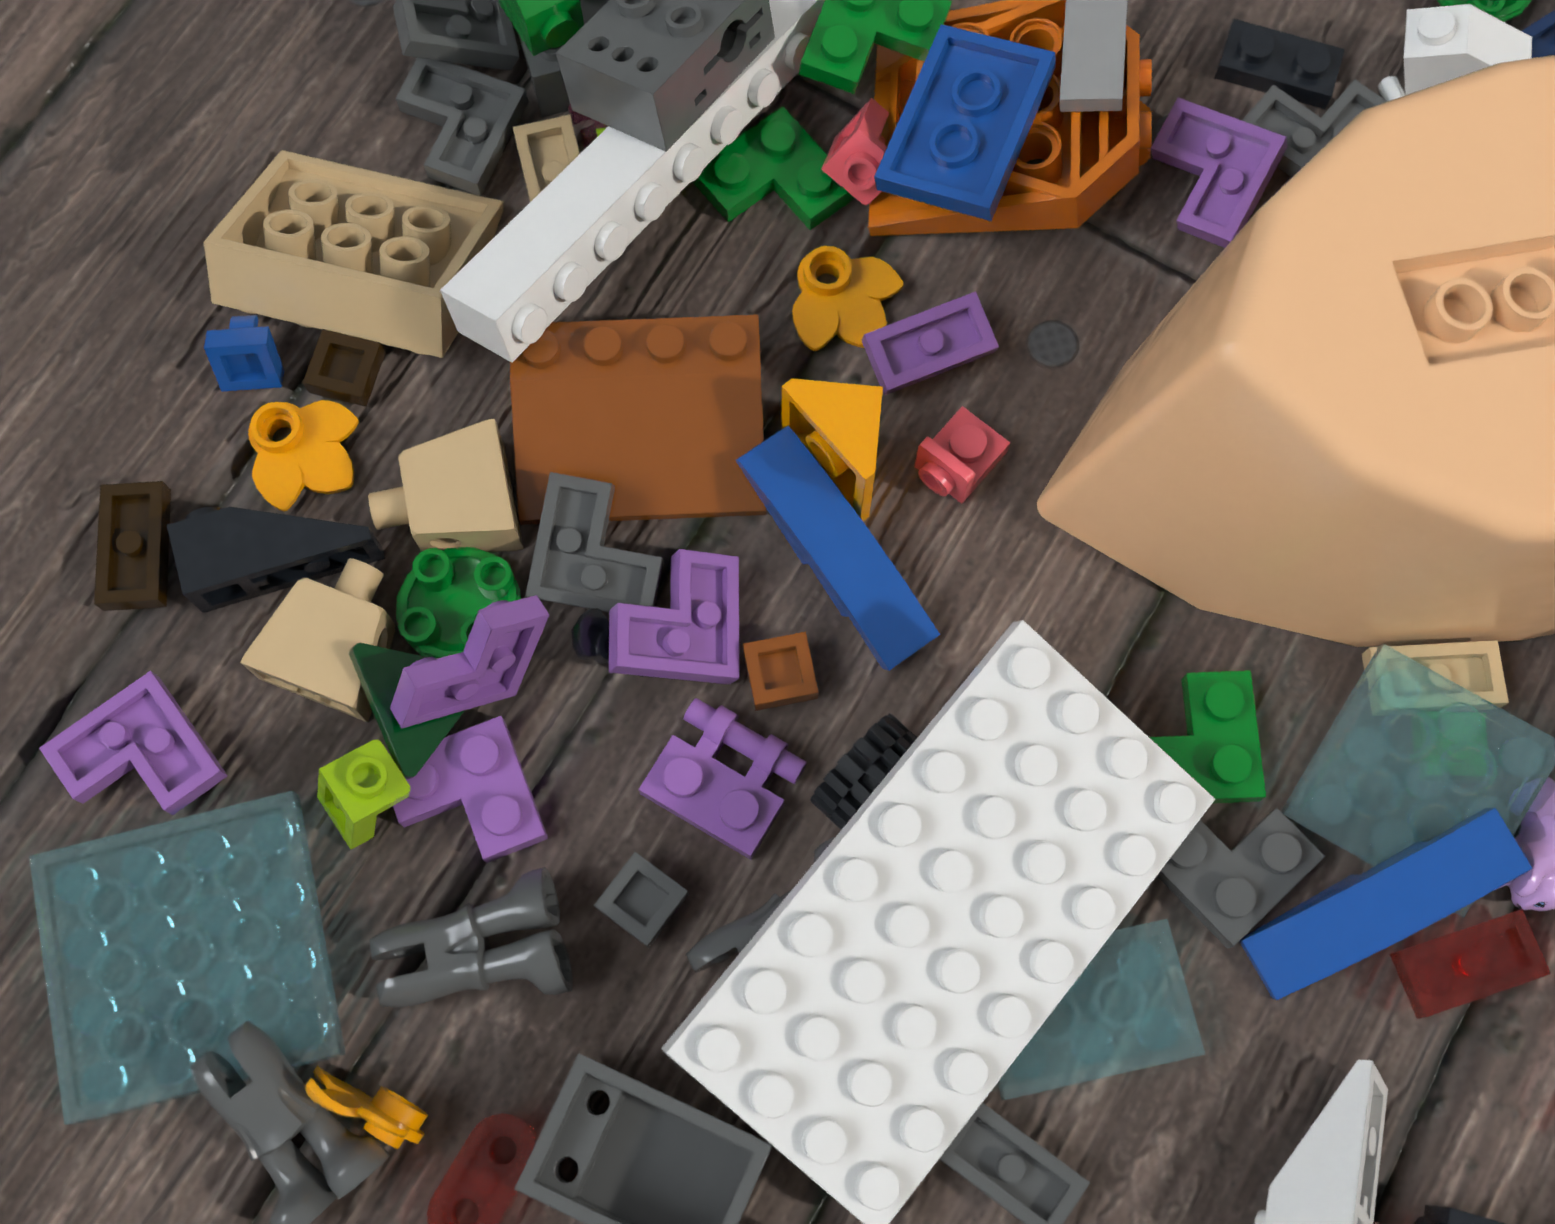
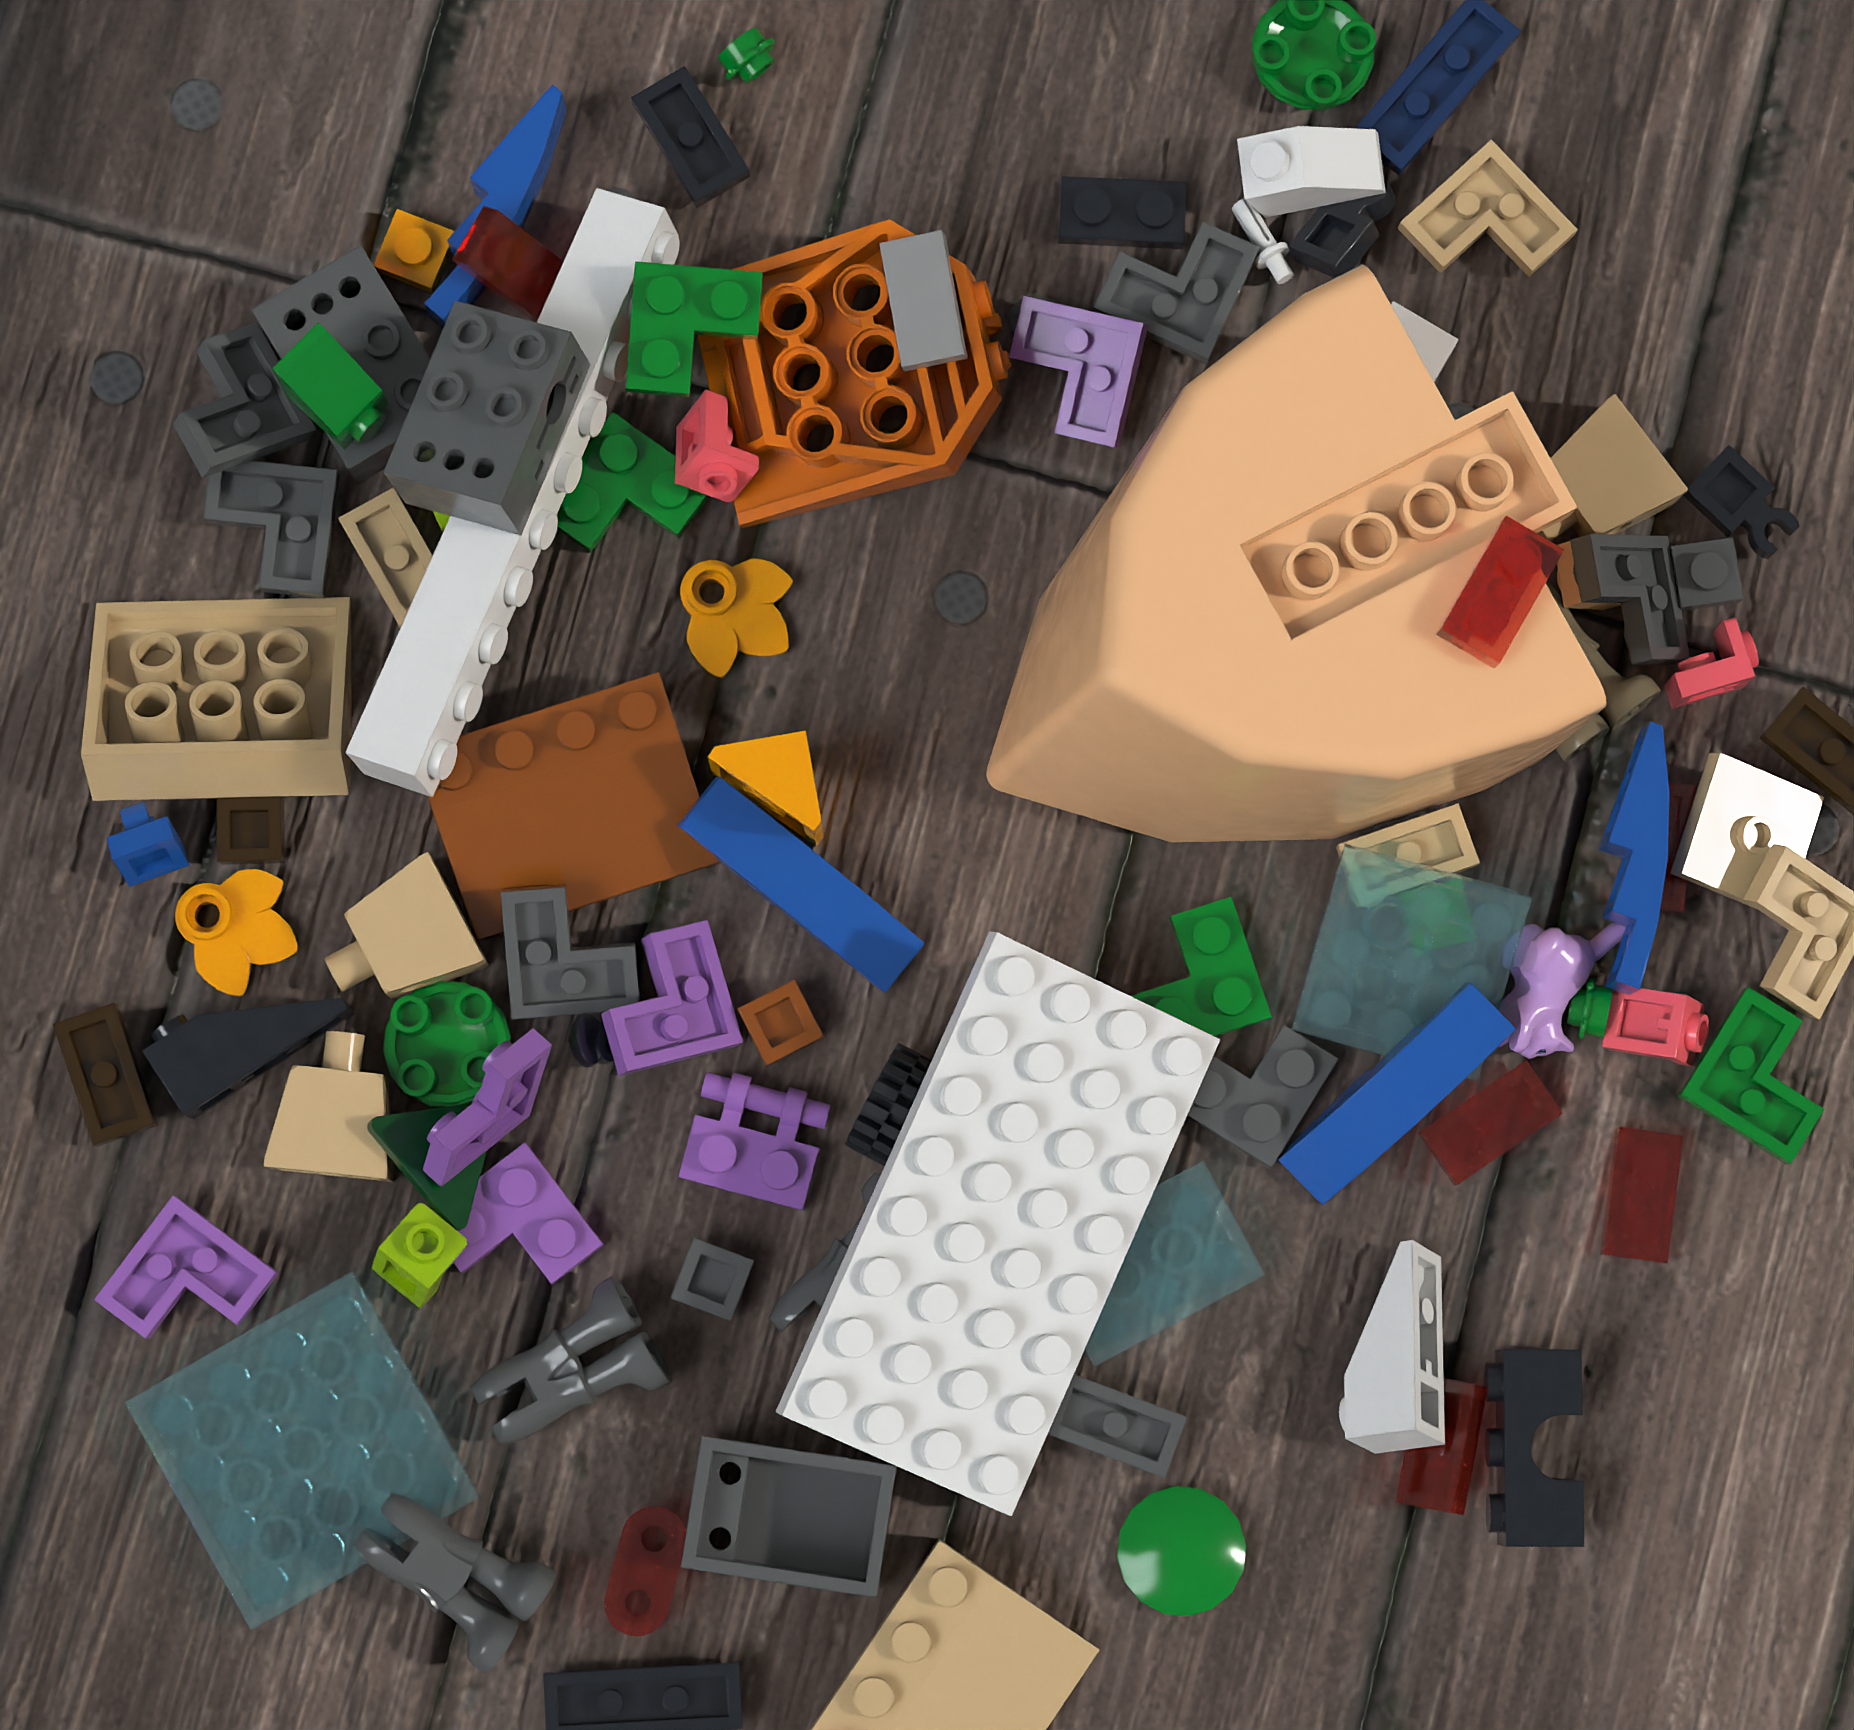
camera: 20 degrees left, 10 degrees up
(387, 1114) = (542, 1537): light orange plate -> none
(929, 343) = (836, 641): medium lavender plate -> none
(960, 455) = (897, 751): coral bracket -> none
(965, 122) = (812, 410): blue plate -> none

